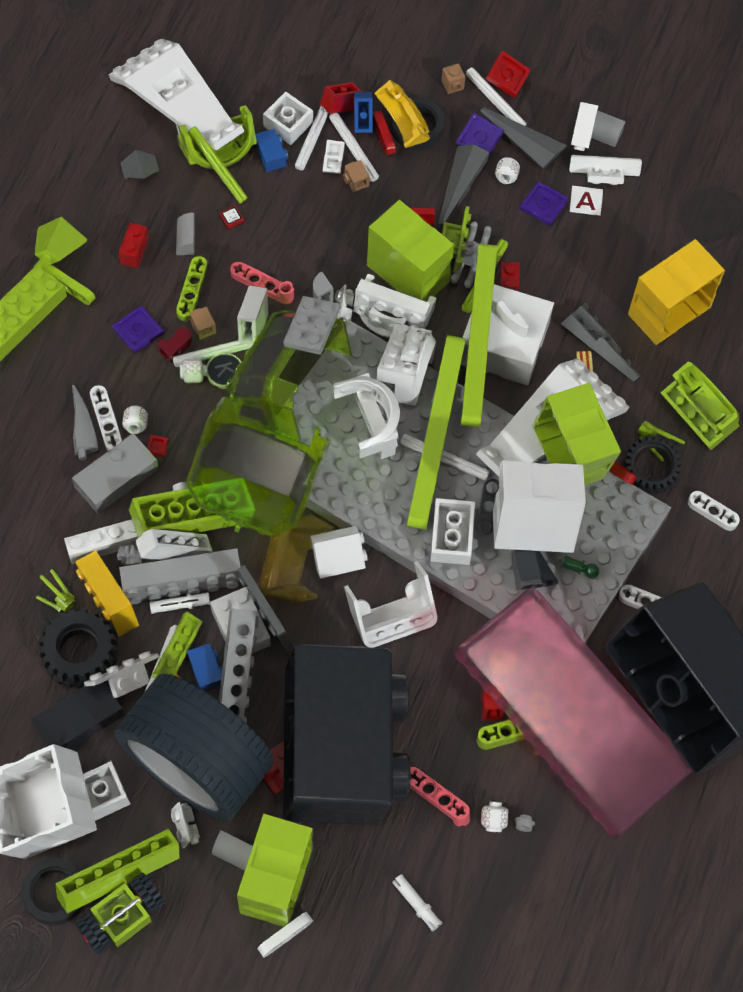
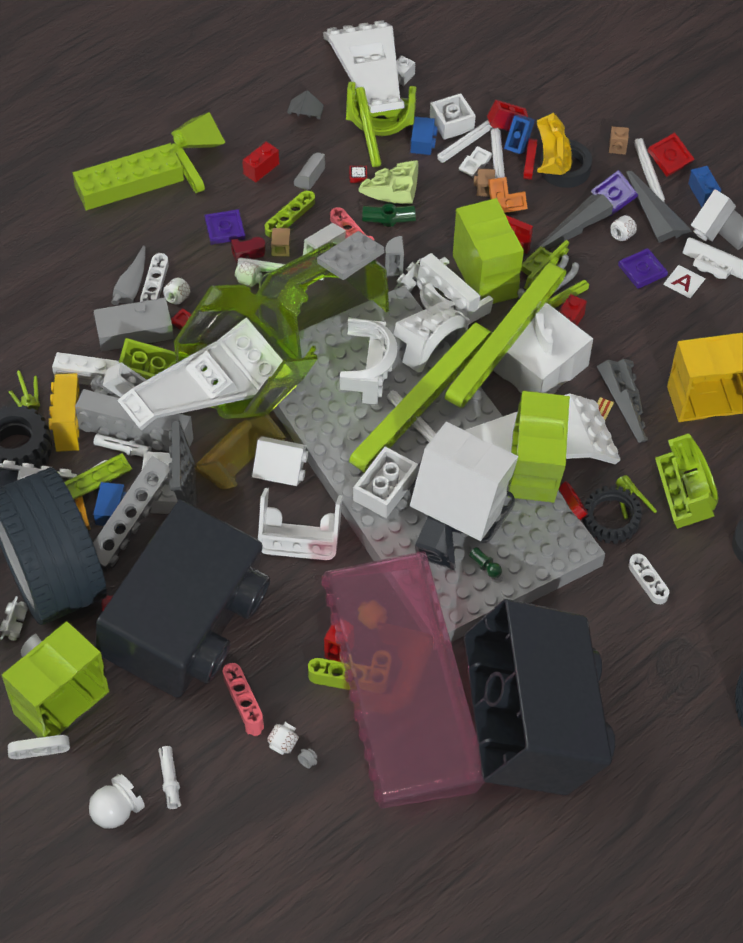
camera: 30 degrees right, 10 degrees down
(213, 81) = (405, 70): none -> white brick
(253, 474) = (237, 361): none -> white wing
(271, 213) = (393, 185): none -> yellowish green brick
(295, 245) = (388, 214): none -> dark green piece
(382, 187) = (509, 202): none -> orange plate
(388, 955) = (112, 804): none -> white tile
(555, 95) = (702, 184): none -> blue brick

